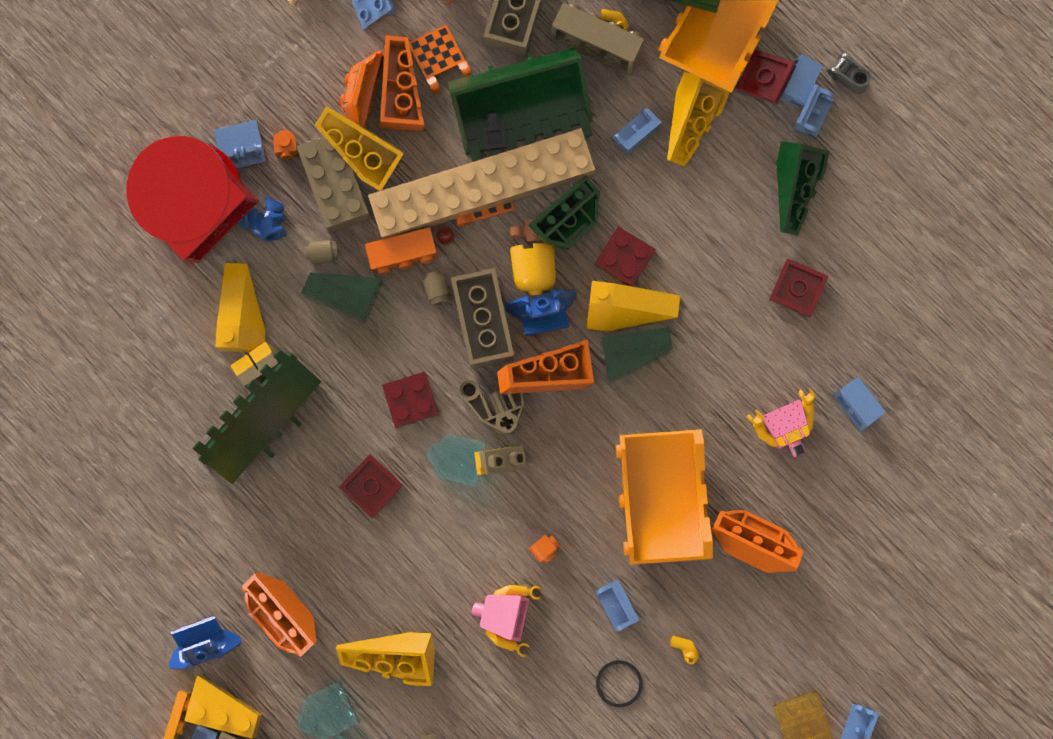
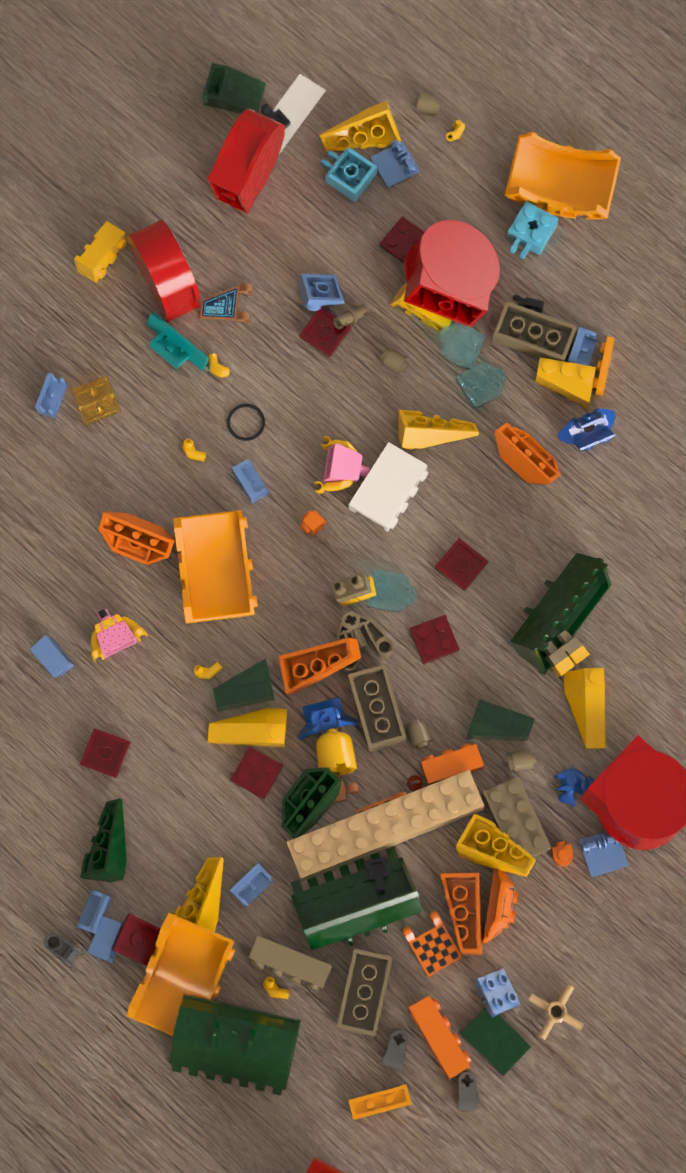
camera: 175 degrees right, 5 degrees down
(450, 586) = (389, 486): none -> white panel
(677, 375) = (207, 673): none -> yellow arm

